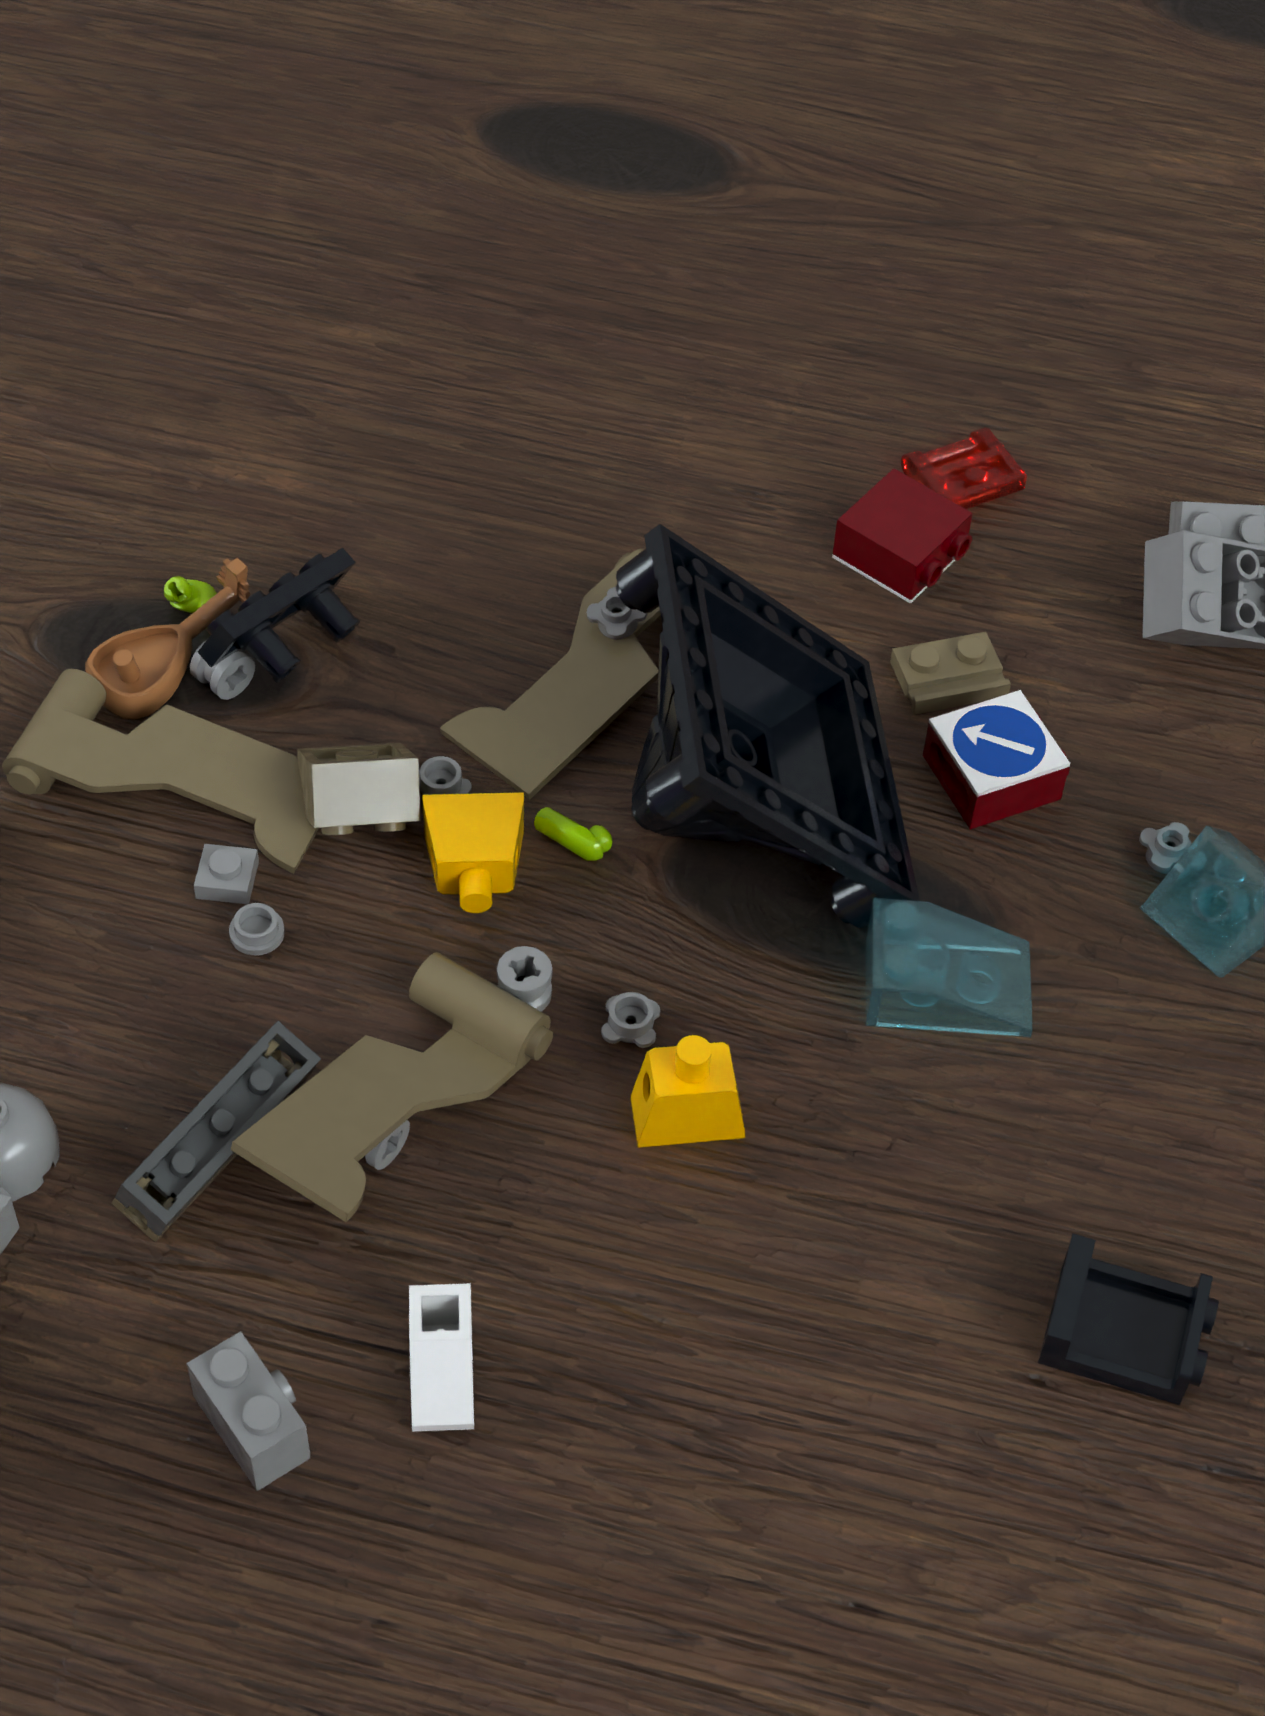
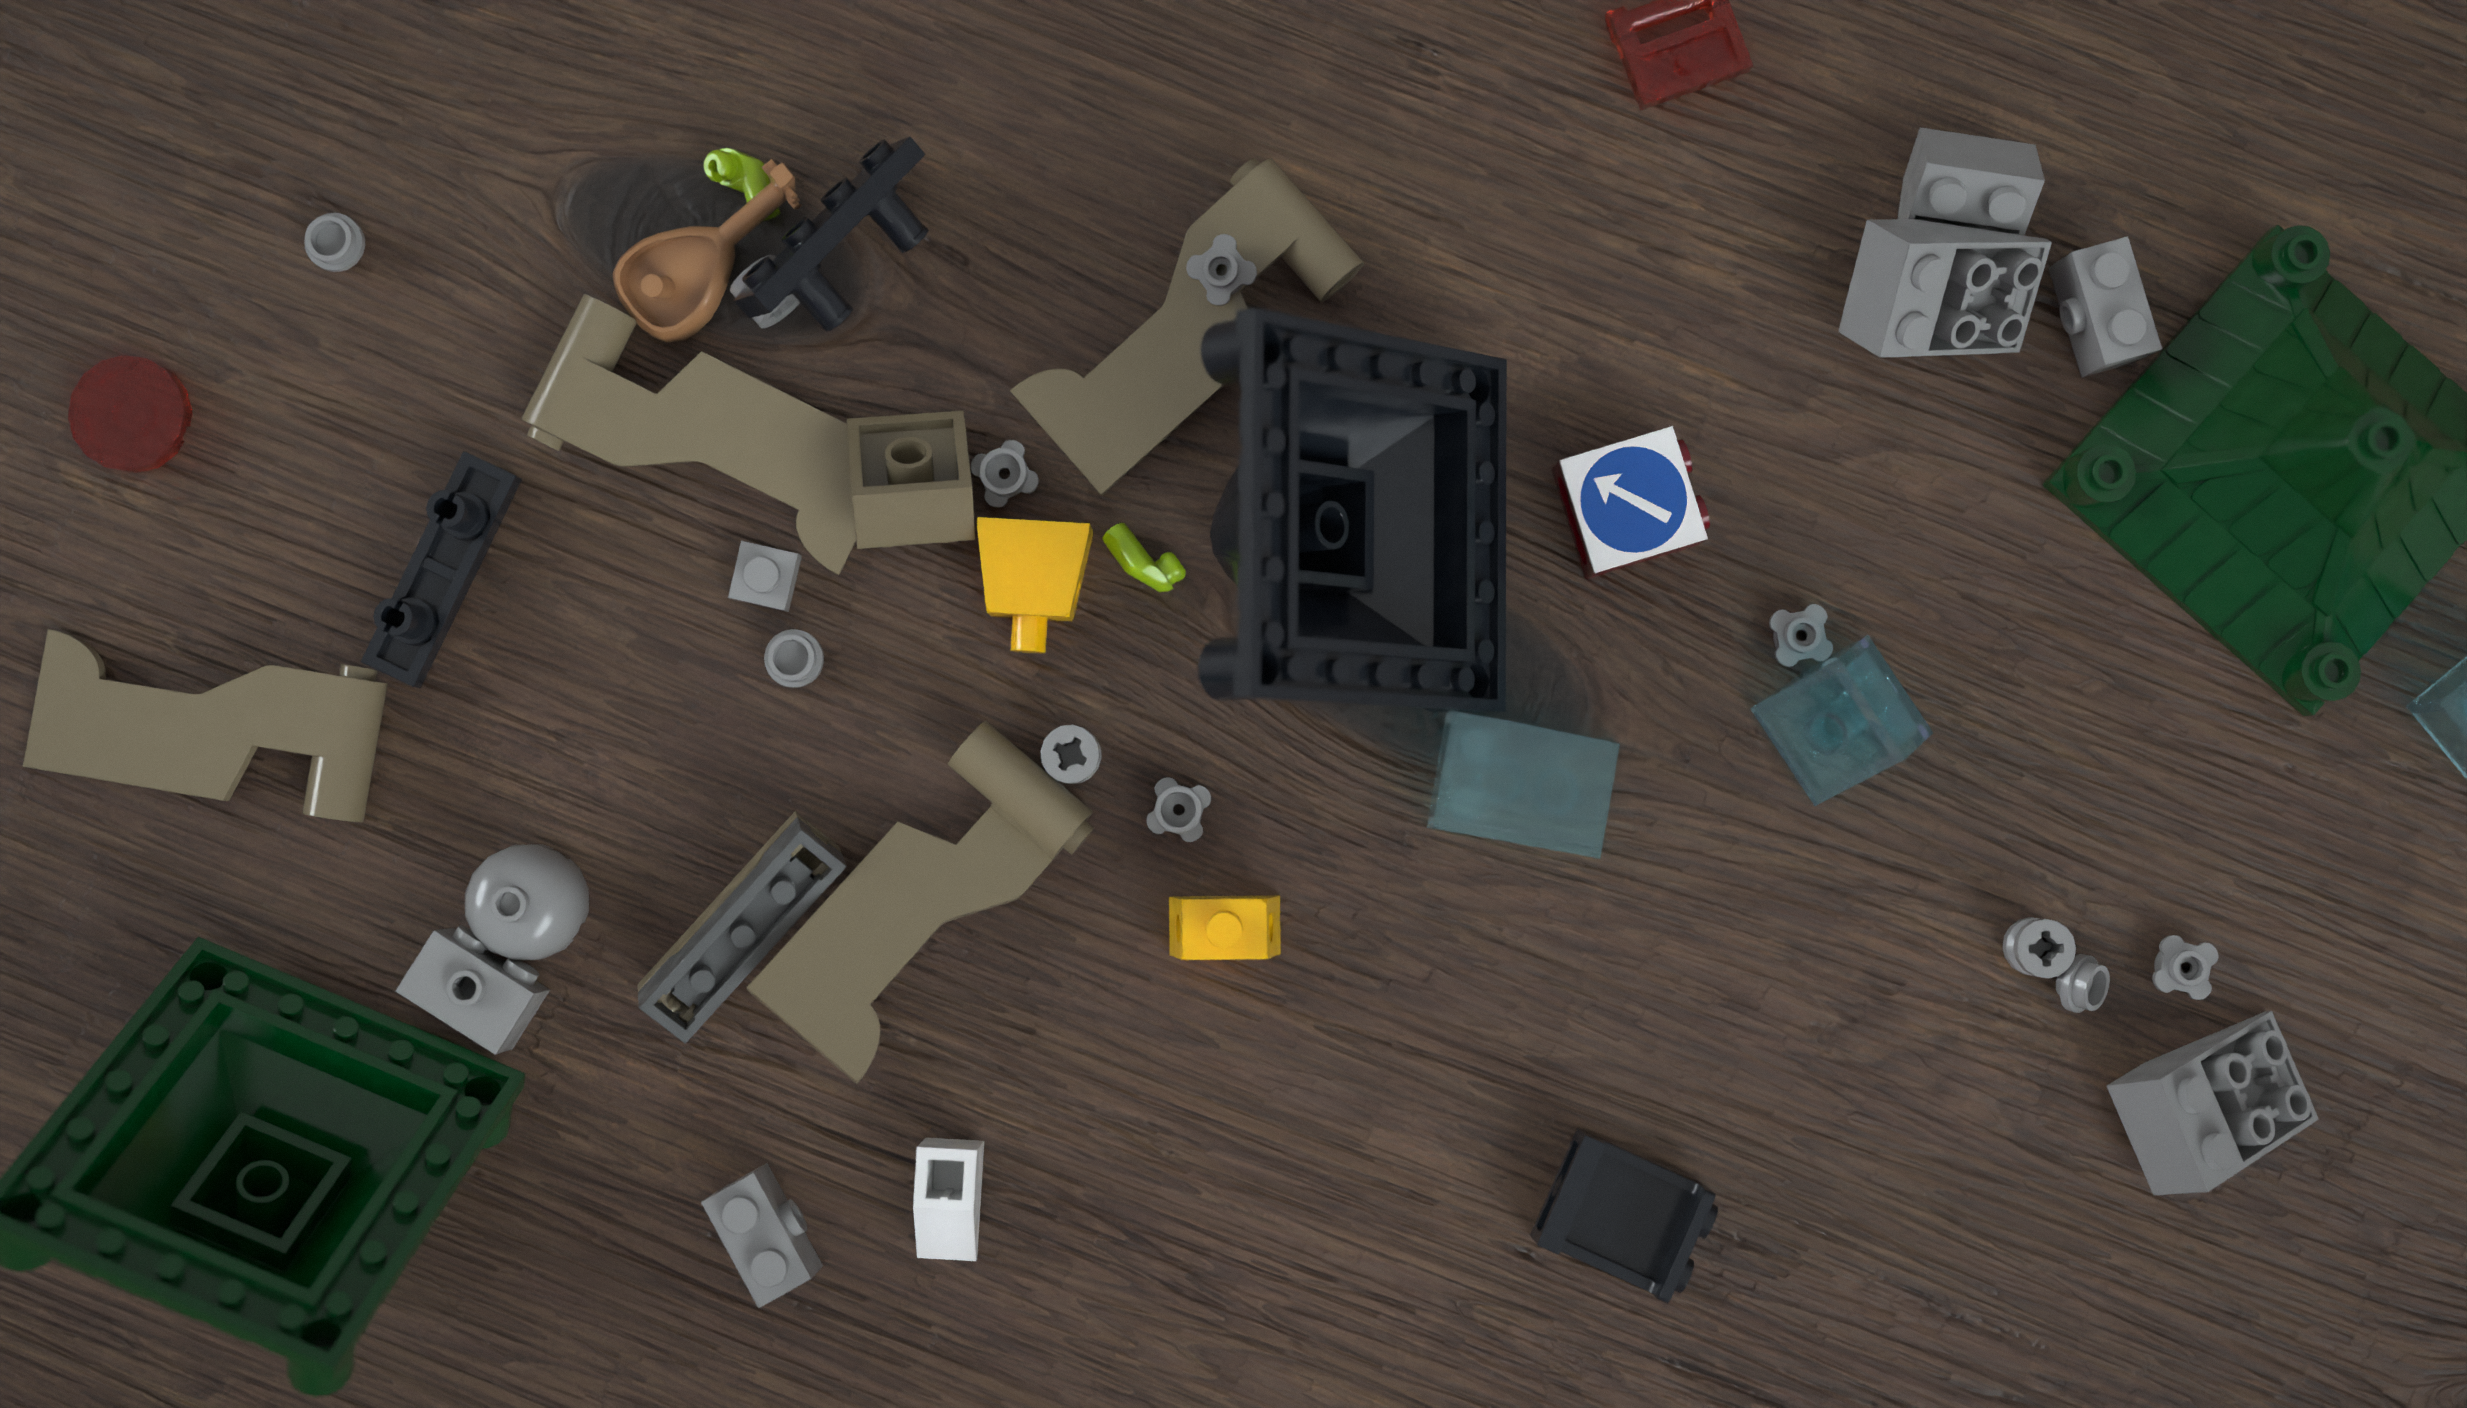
camera: 10 degrees right, 35 degrees up
(902, 535) = (1584, 151): dark red piece -> none
(949, 672) = (1603, 357): dark tan plate -> none

